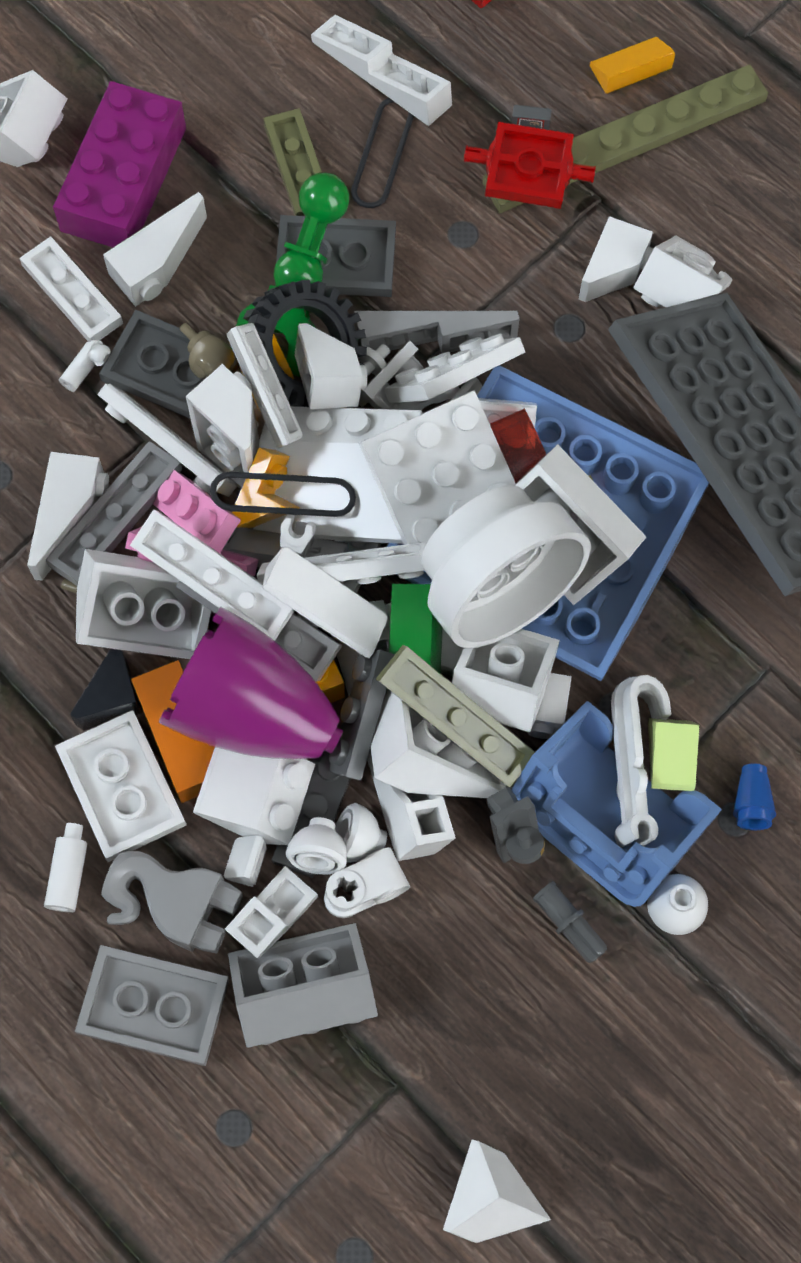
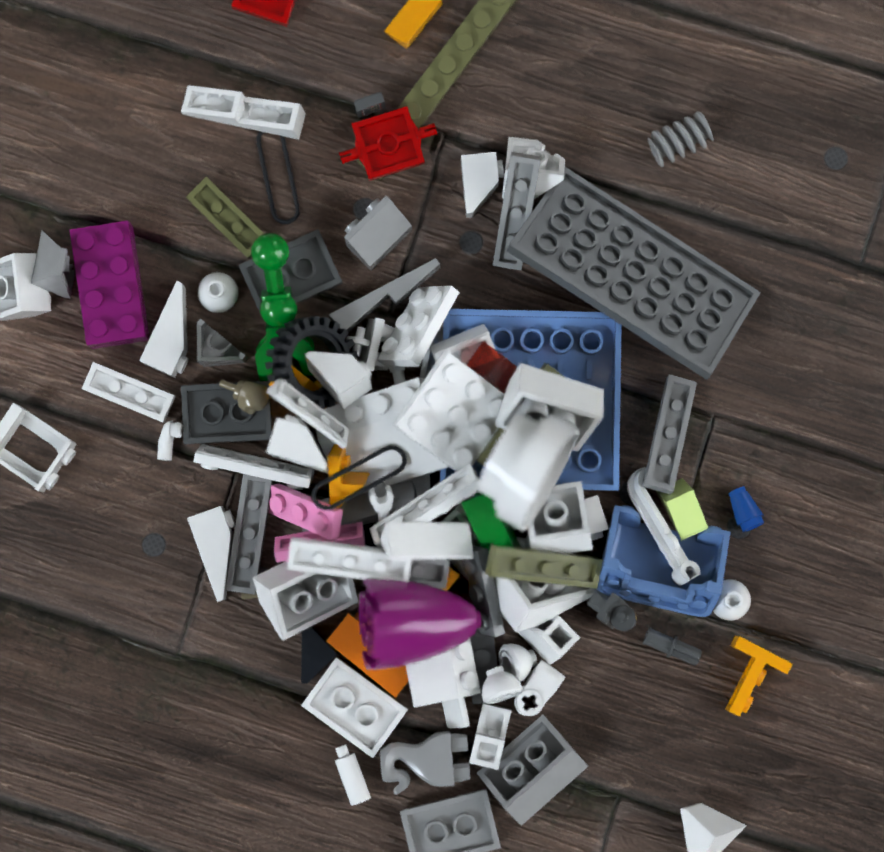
camera: 25 degrees left, 15 degrees up
(65, 118) = (53, 268): none -> light grey slope
(197, 291) = (215, 349): none -> light grey slope
(239, 237) = (217, 292): none -> white brick
(463, 251) = (377, 232): none -> light grey slope
(647, 292) = (516, 205): none -> light grey plate
(663, 1013) = (753, 673): none -> light orange bracket
(701, 652) = (669, 434): none -> light grey plate

